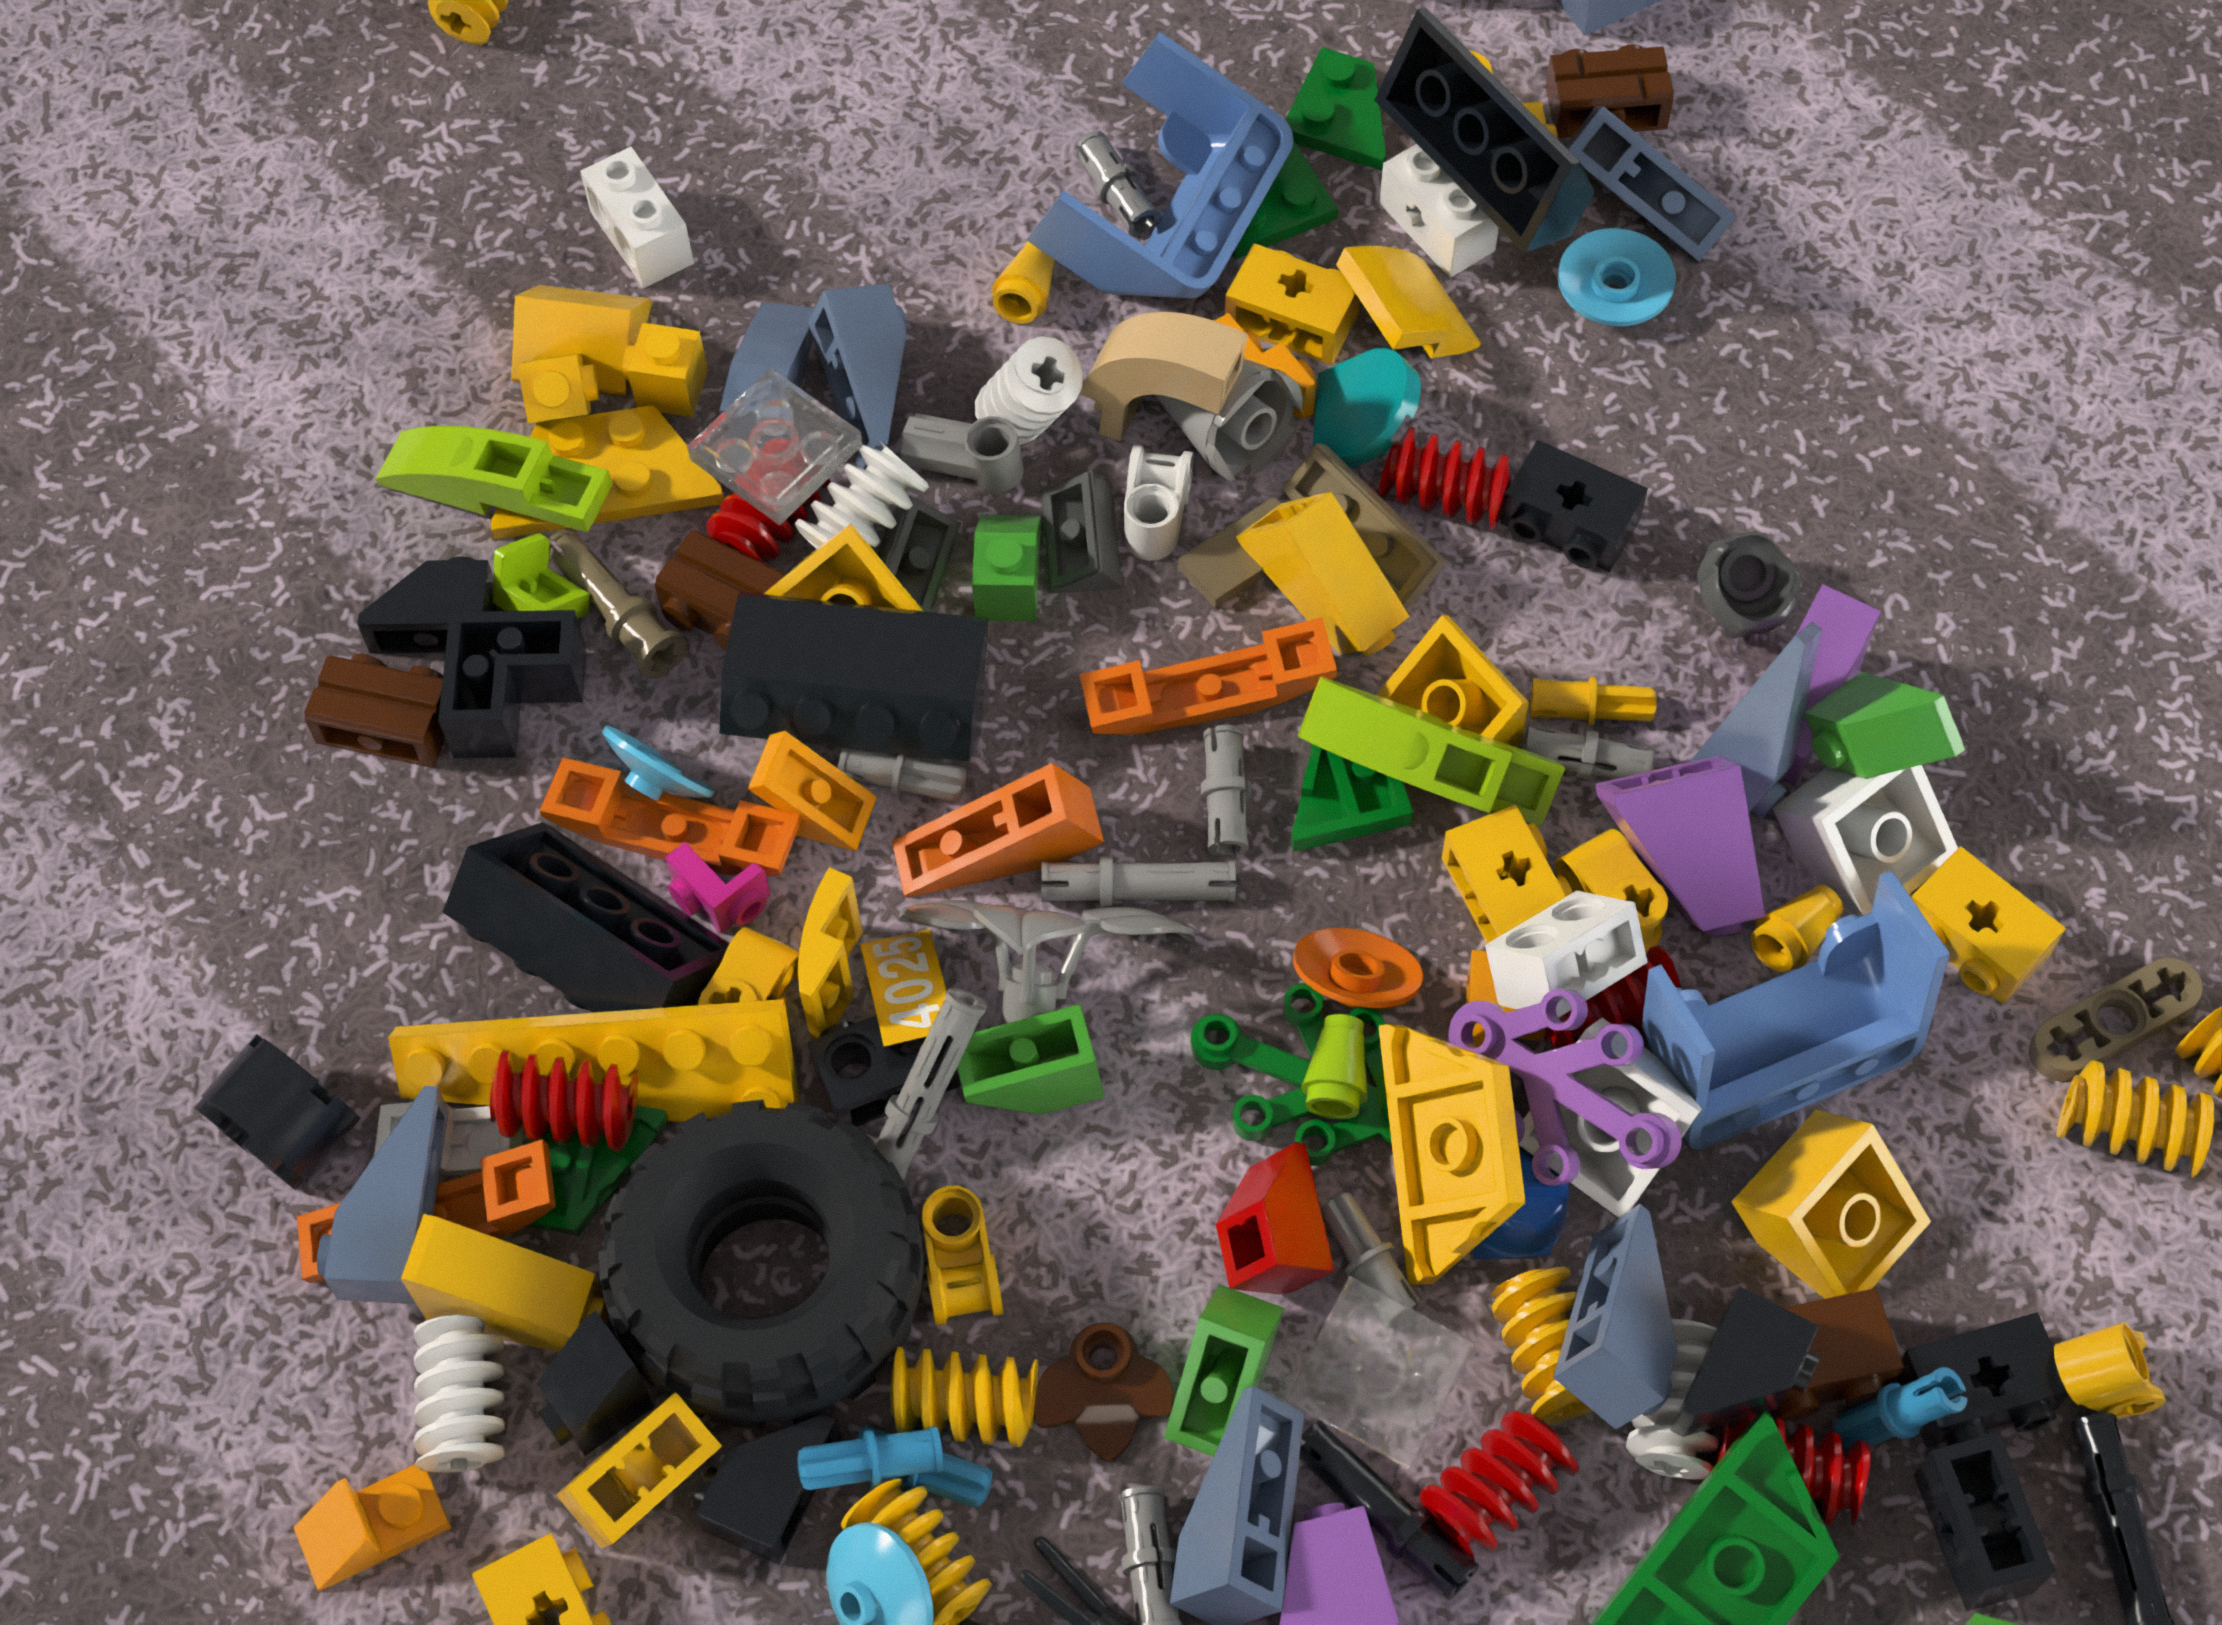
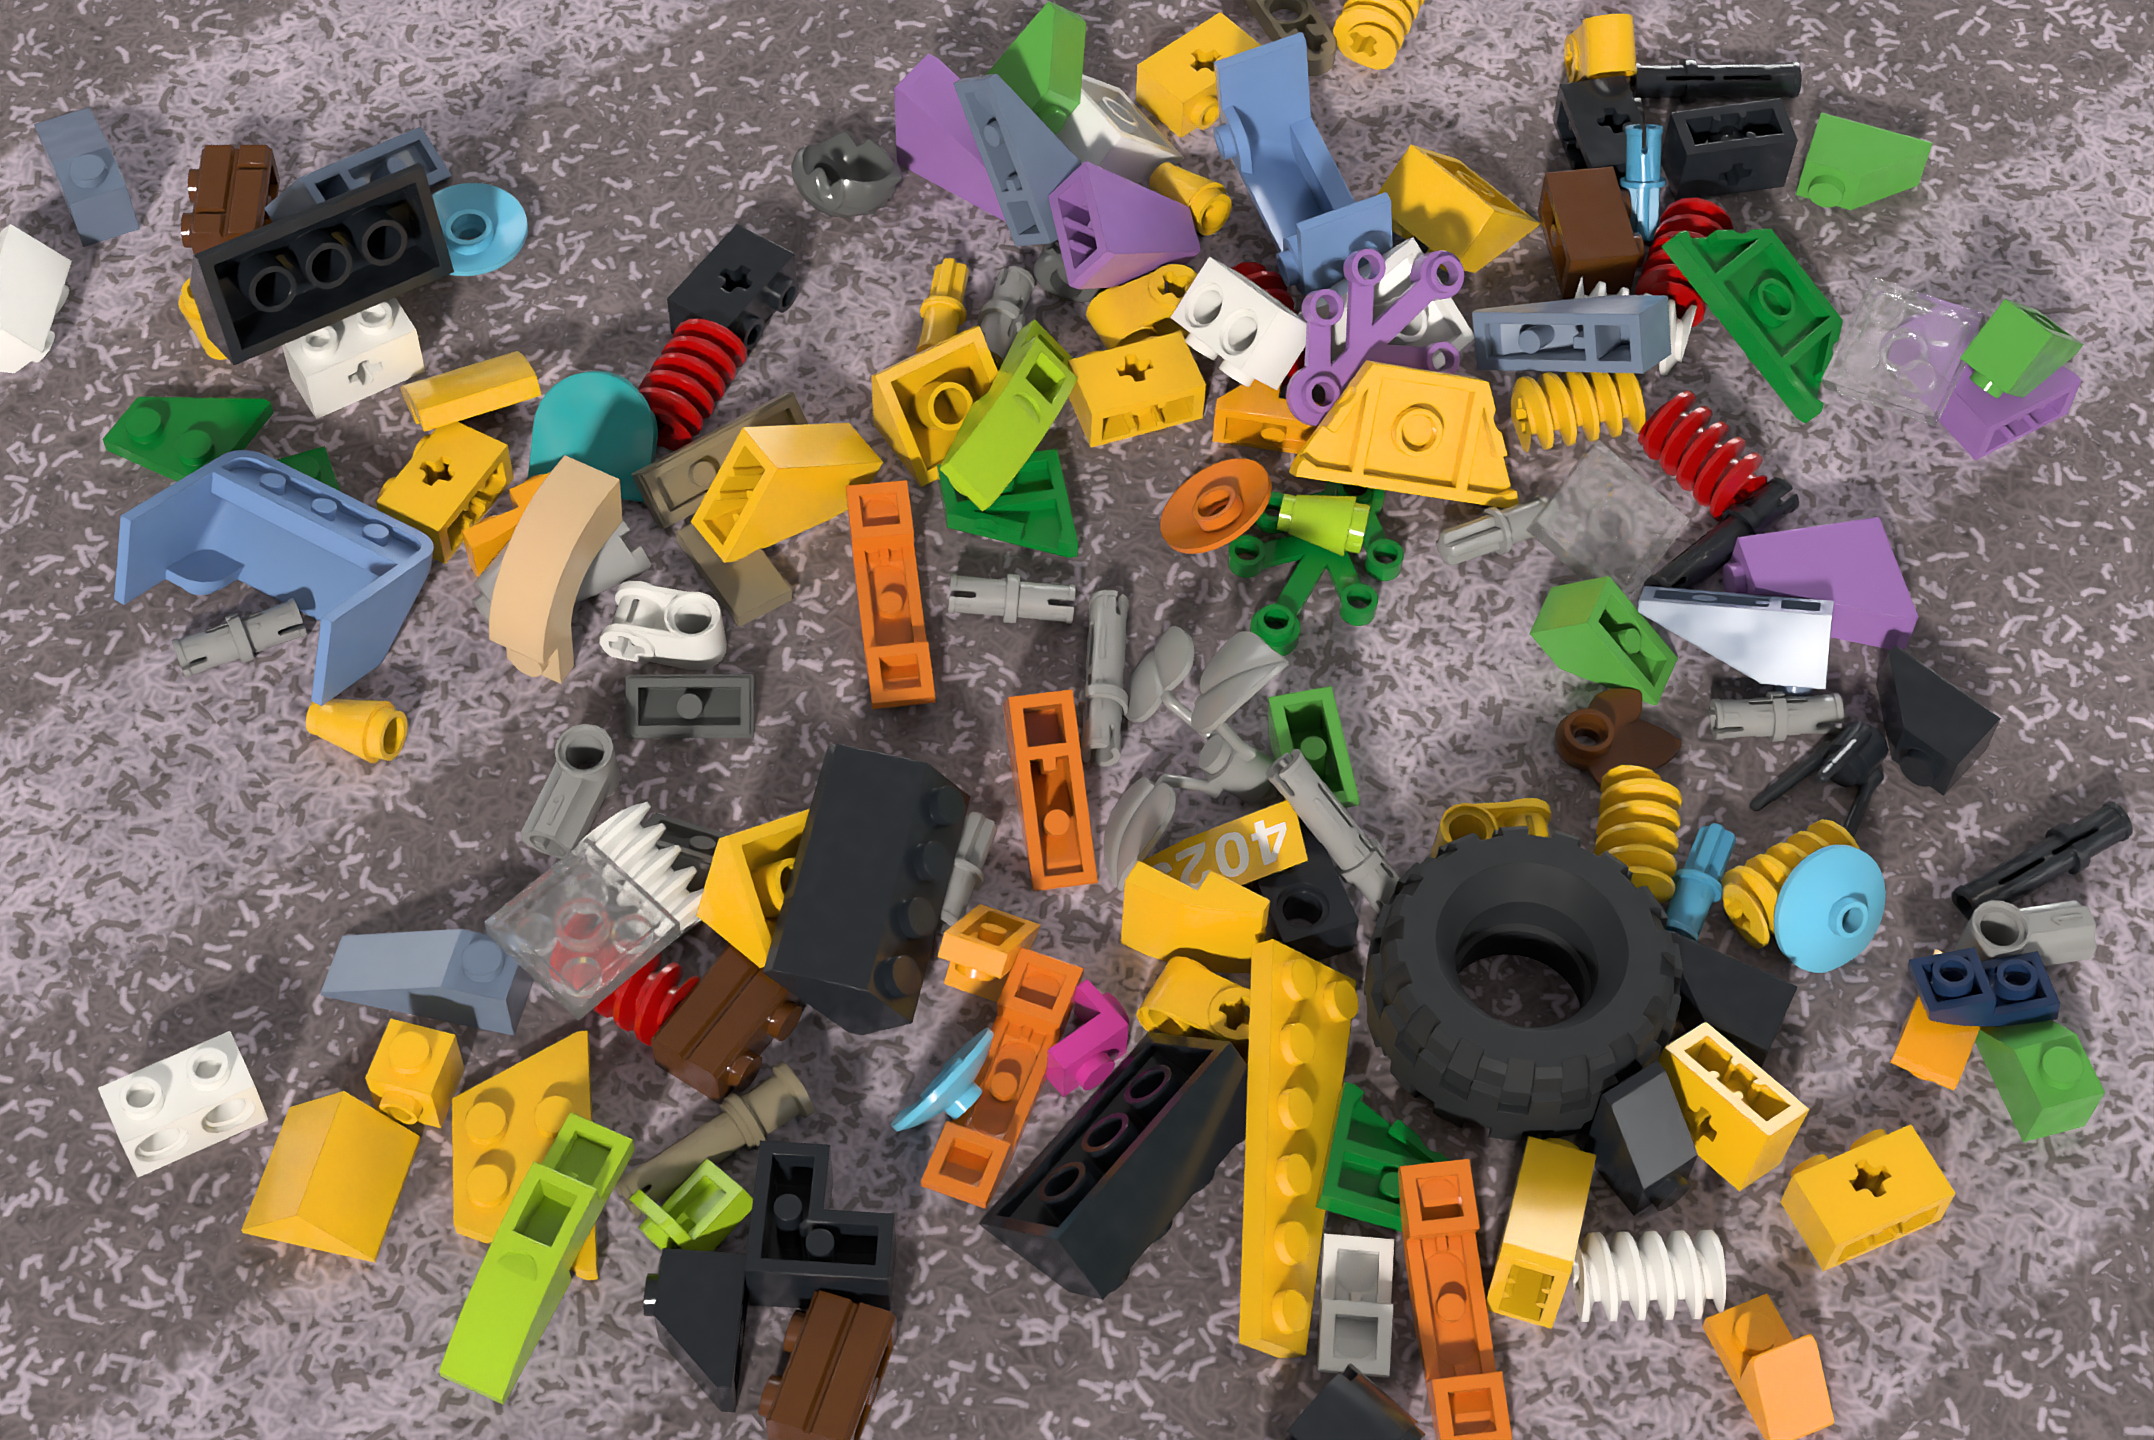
camera: 90 degrees left, 5 degrees down
(385, 1208) = (1470, 1324): sand blue slope -> none
(557, 388) = (423, 1186): yellow brick -> none
(563, 1102) = (1354, 1152): red piece -> none
(861, 351) = (444, 874): sand blue slope -> none
(870, 1459) = (1714, 895): dark azure axle -> none
(1006, 567) = (722, 759): bright green slope -> none
(1032, 387) = (530, 711): white piece -> none
(1275, 1227) = (1468, 587): red slope -> none
(1748, 1365) = (1628, 248): black slope -> none

